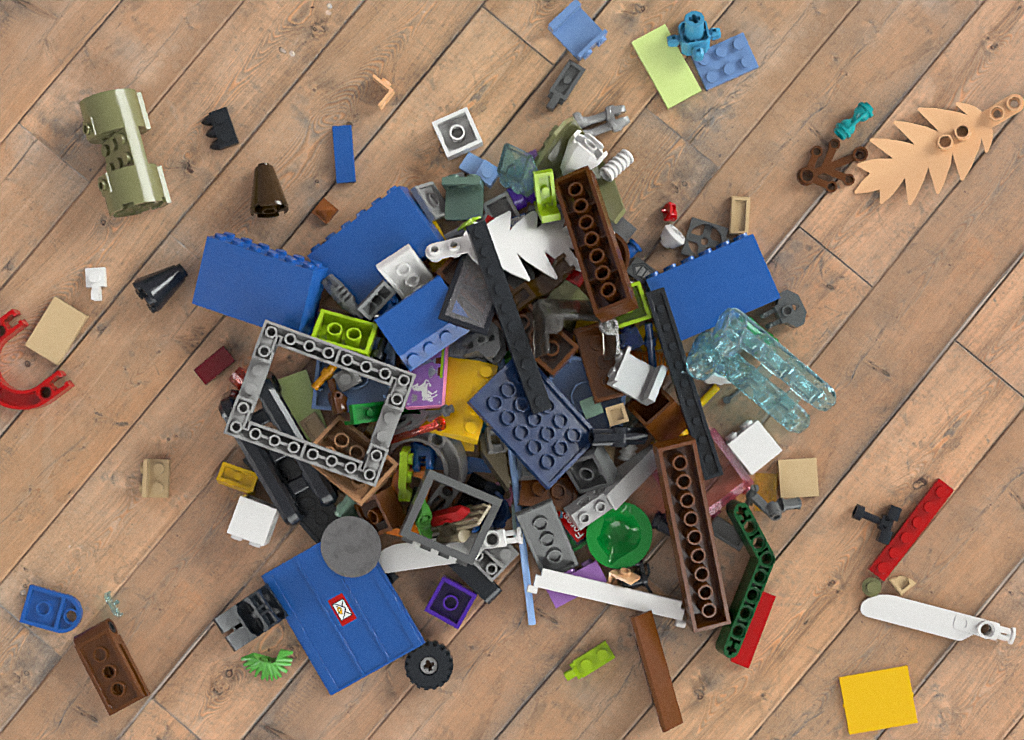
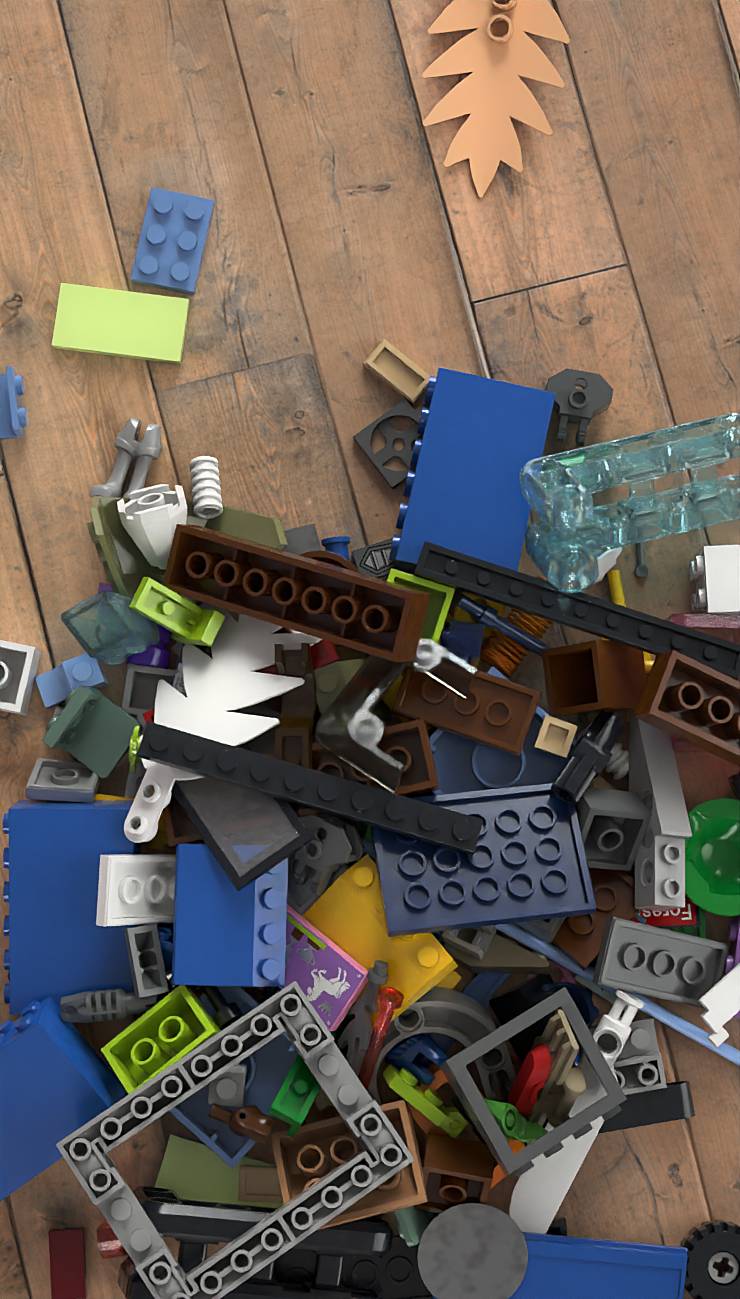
camera: 55 degrees left, 5 degrees down
(326, 374) = (198, 1111): light orange bar -> none
(451, 601) = (653, 1167): dark purple brick -> none
(564, 84) = (41, 477): dark grey hinge -> none
(589, 408) = (520, 768): sand green tile -> none
(636, 377) = (524, 670): panel -> none
(669, 212) = (323, 462): red piece -> none
(671, 237) = (361, 484): white cone -> none
(694, 36) = (106, 254): dark azure piece -> none
(828, 167) = (420, 205): reddish brown plant -> none
(847, 126) = (383, 142): teal piece -> none

